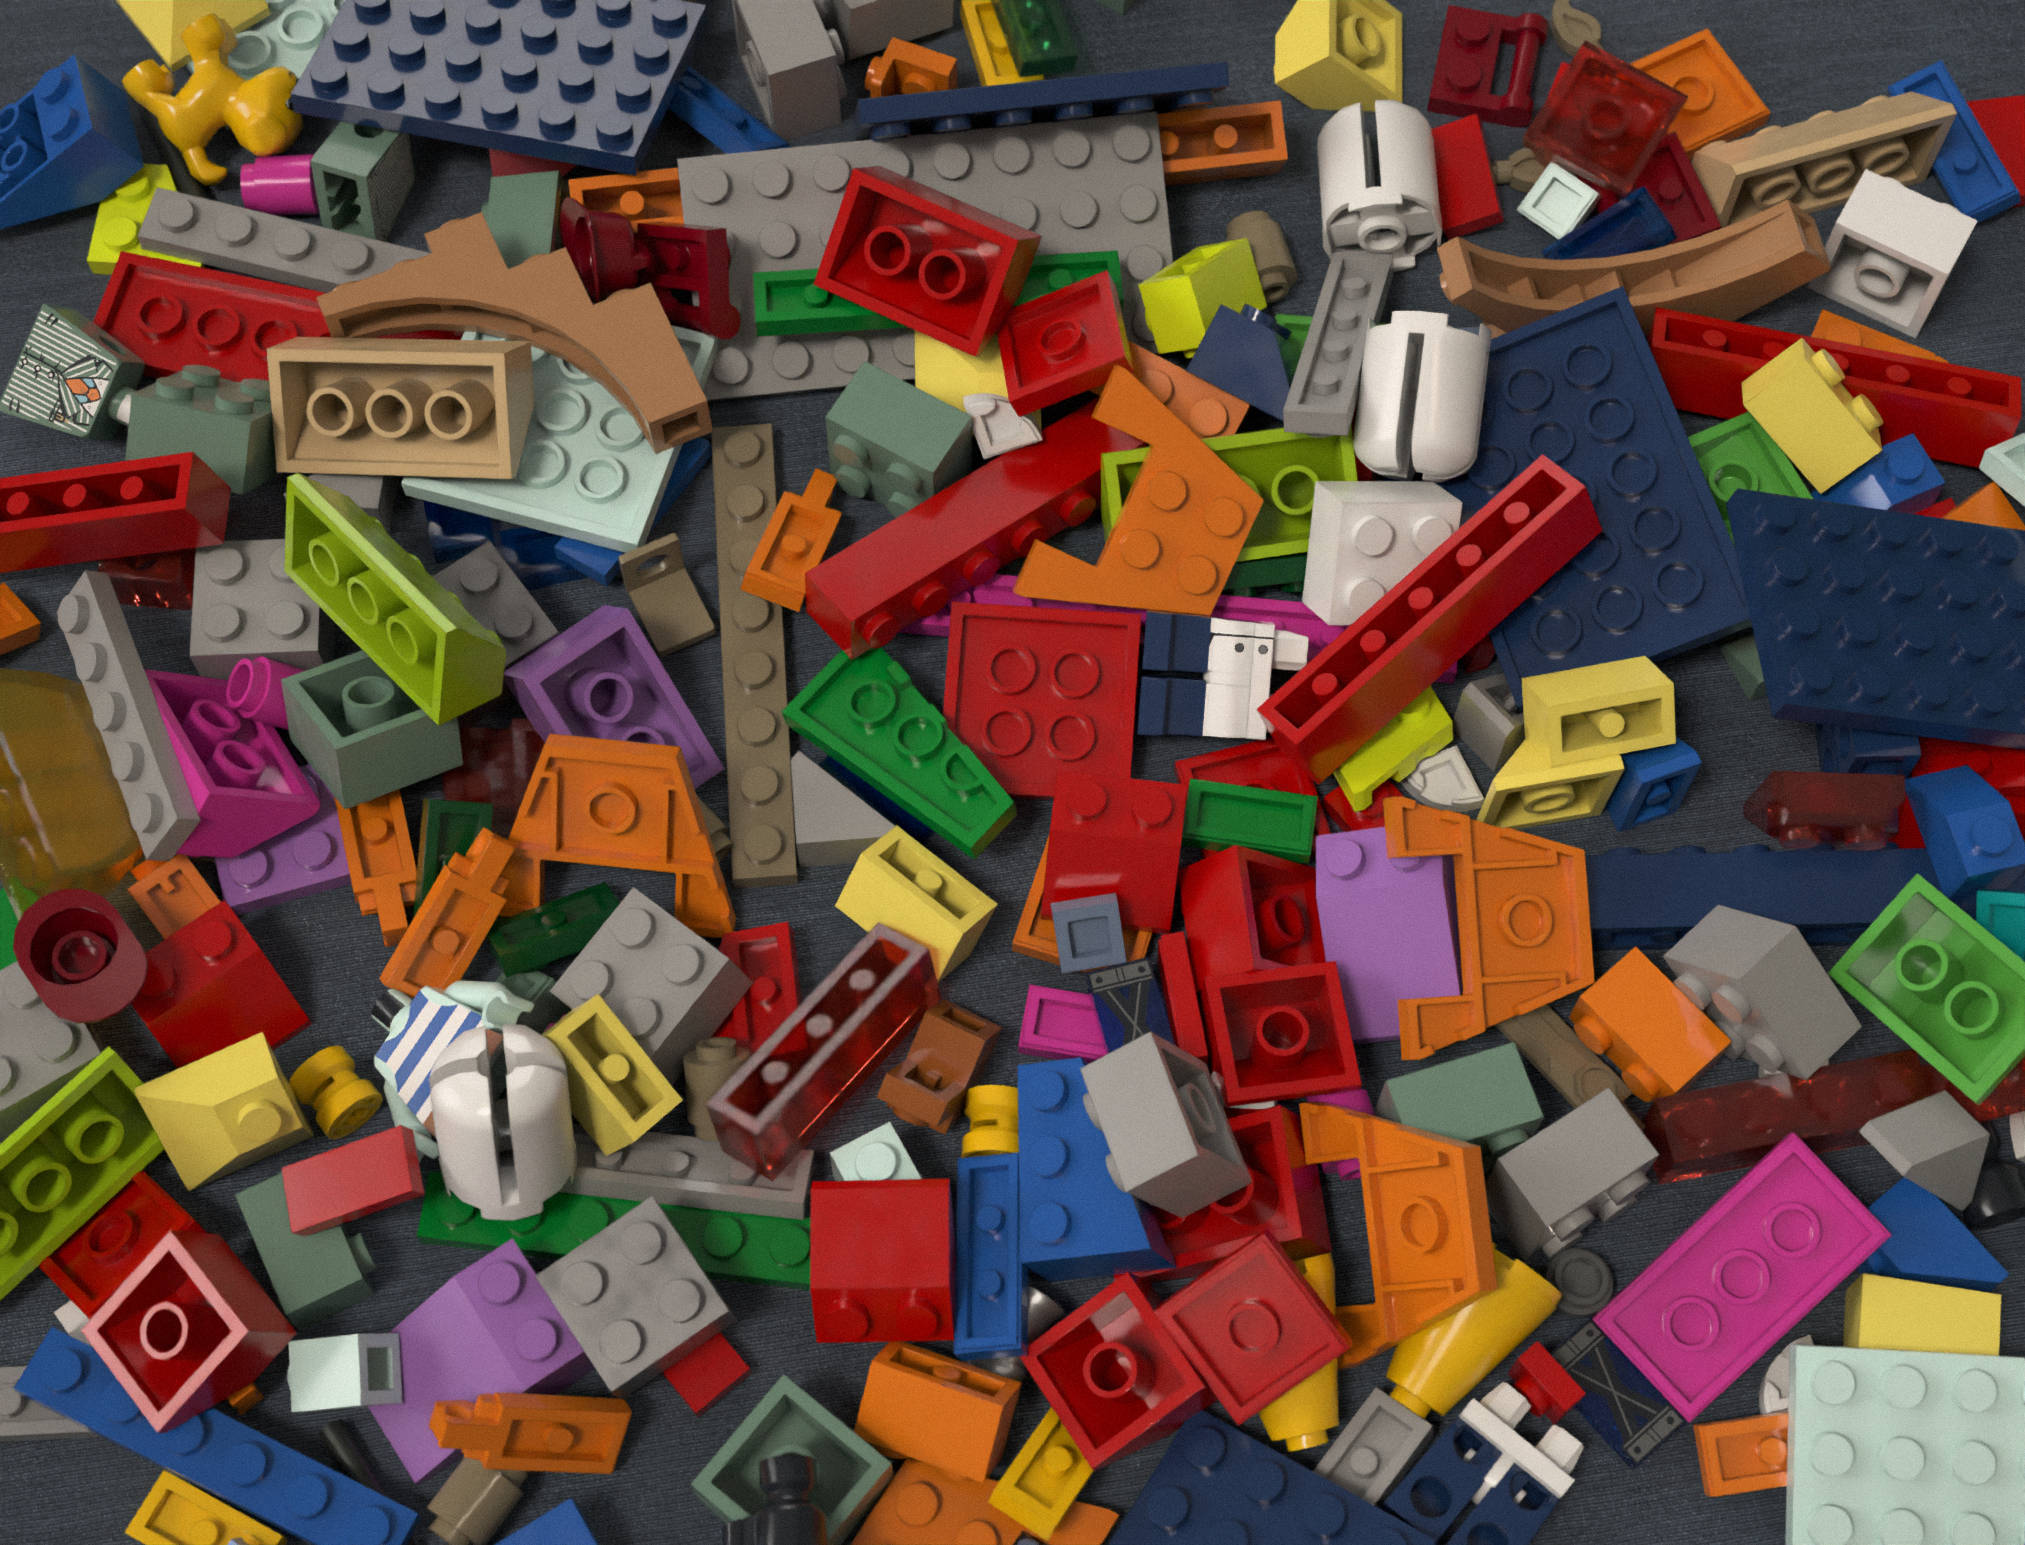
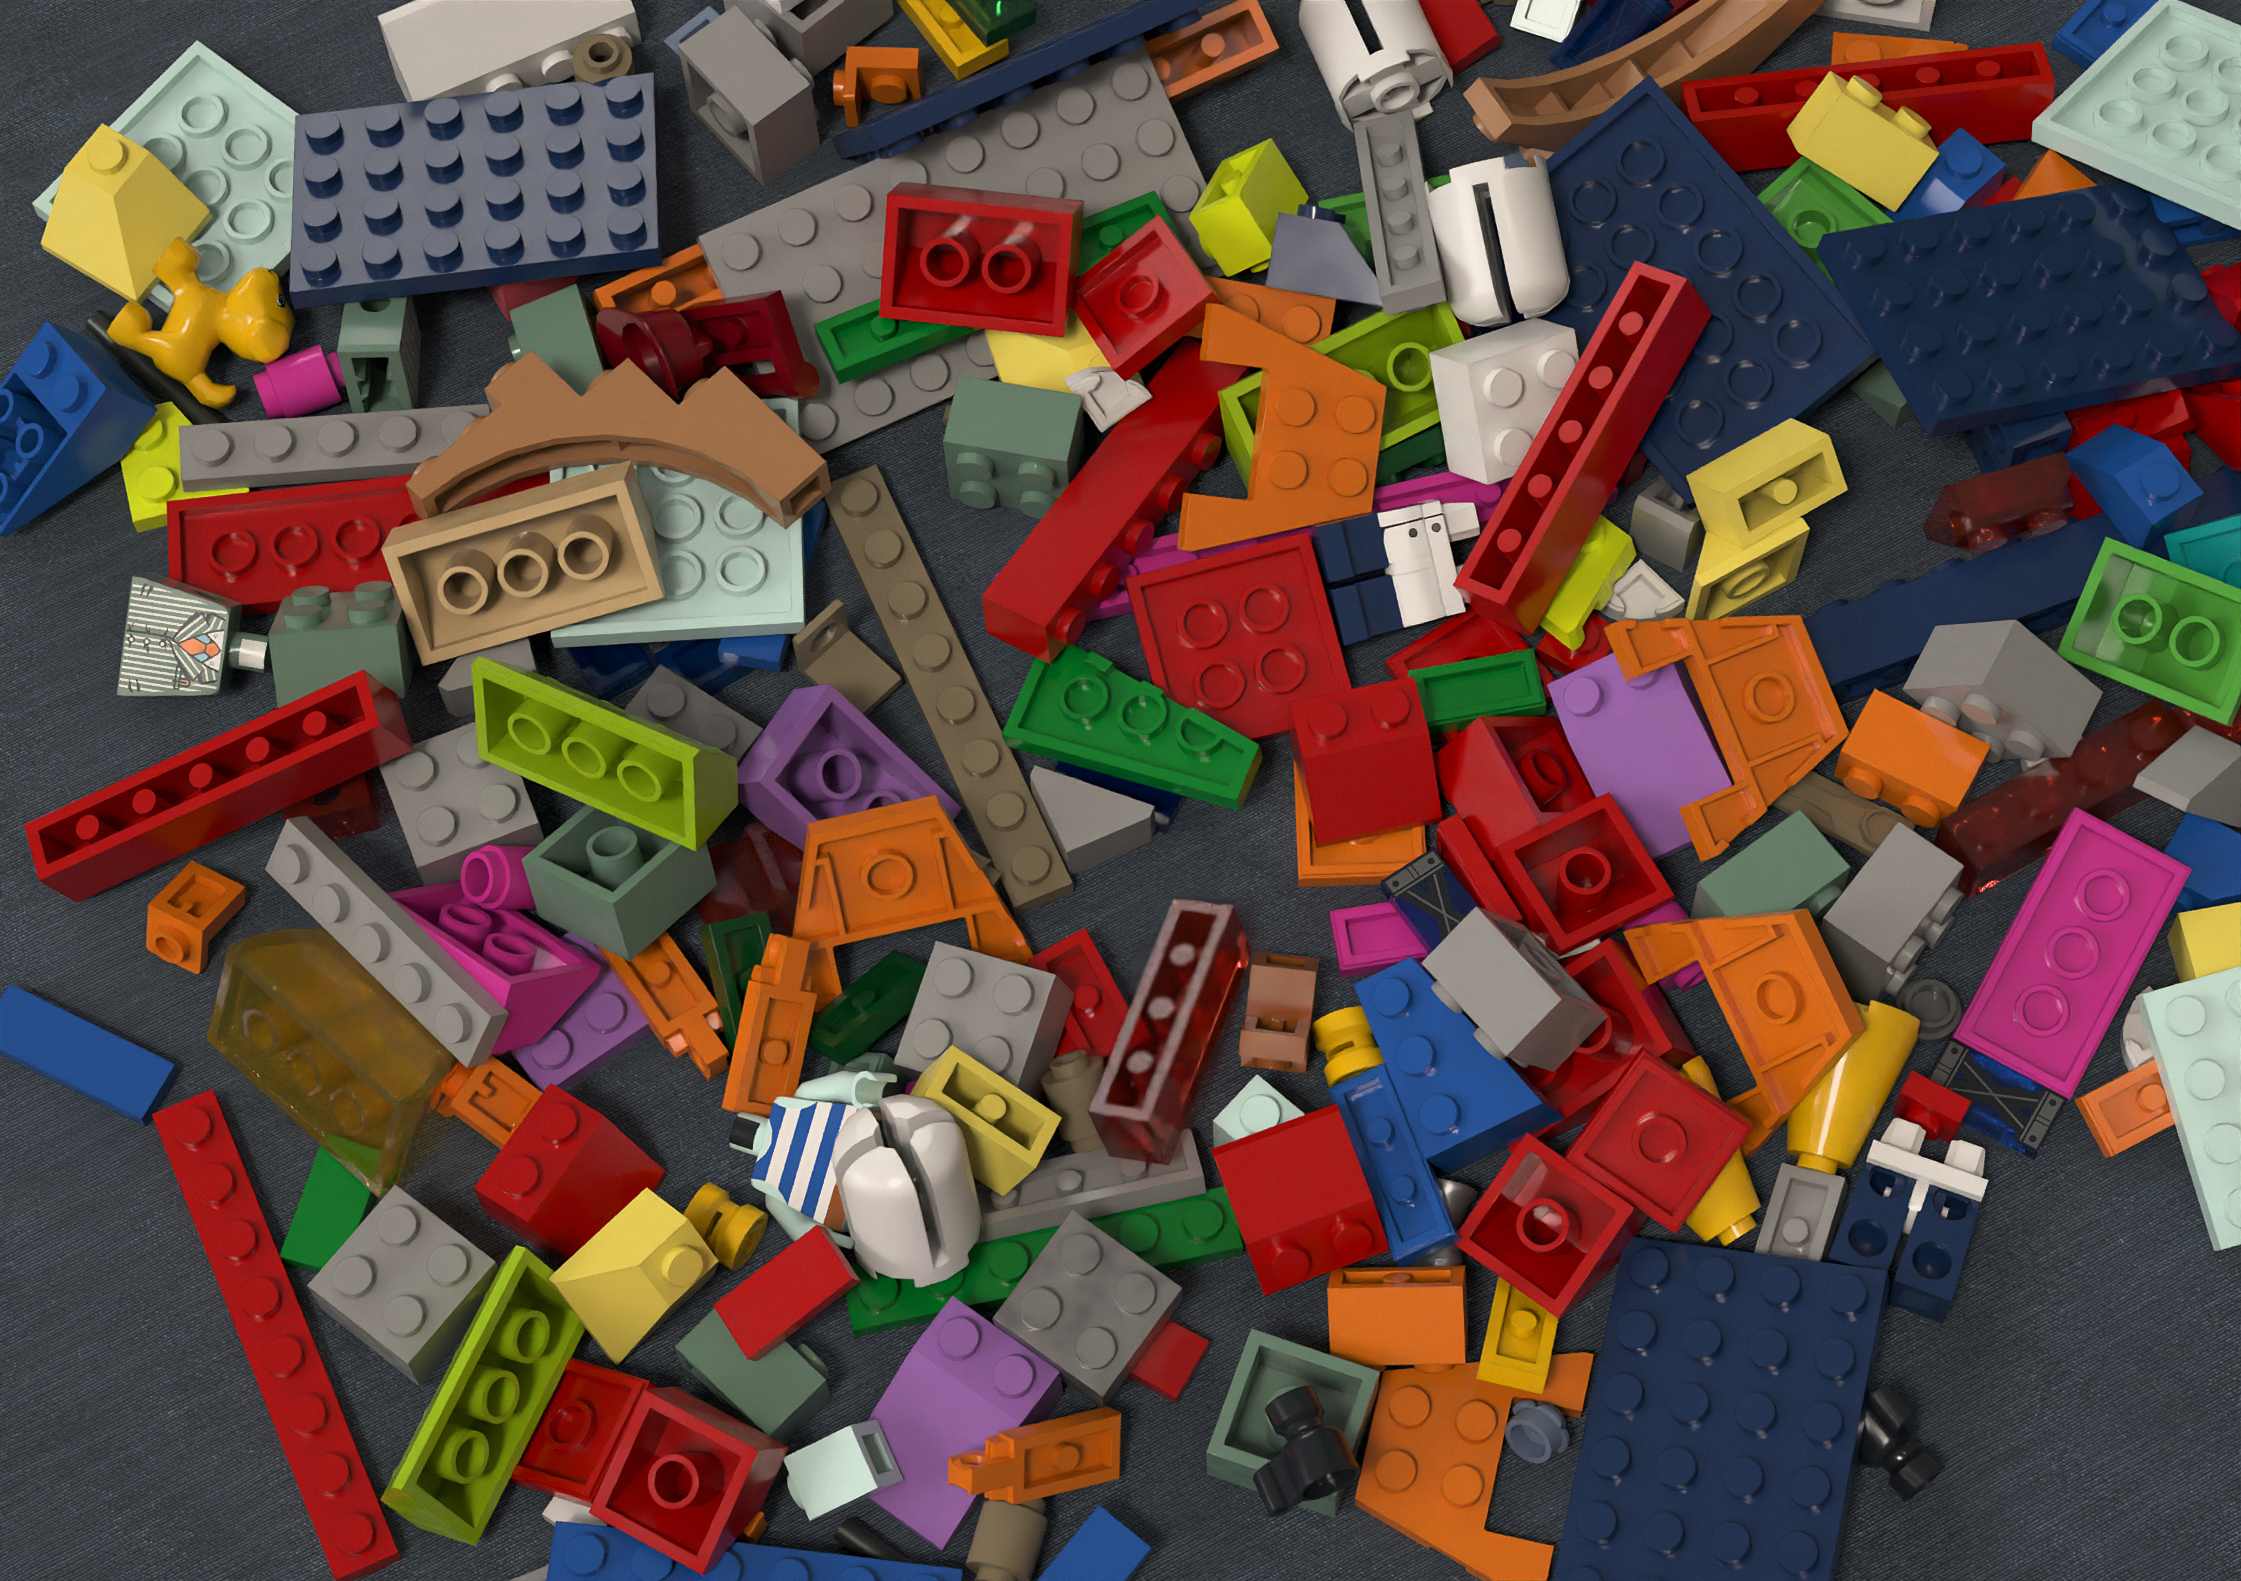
camera: 15 degrees left, 0 degrees up
(79, 955) = (449, 1174): dark red piece -> none
(720, 117) = (714, 182): blue tile -> none
(794, 543) = (950, 572): orange hinge -> none
(918, 897) = (1197, 862): light yellow brick -> none
(1088, 932) = (1370, 843): sand blue plate -> none
(1269, 252) = (1291, 139): dark tan brick -> none
(1652, 784) = (1836, 535): blue slope -> none

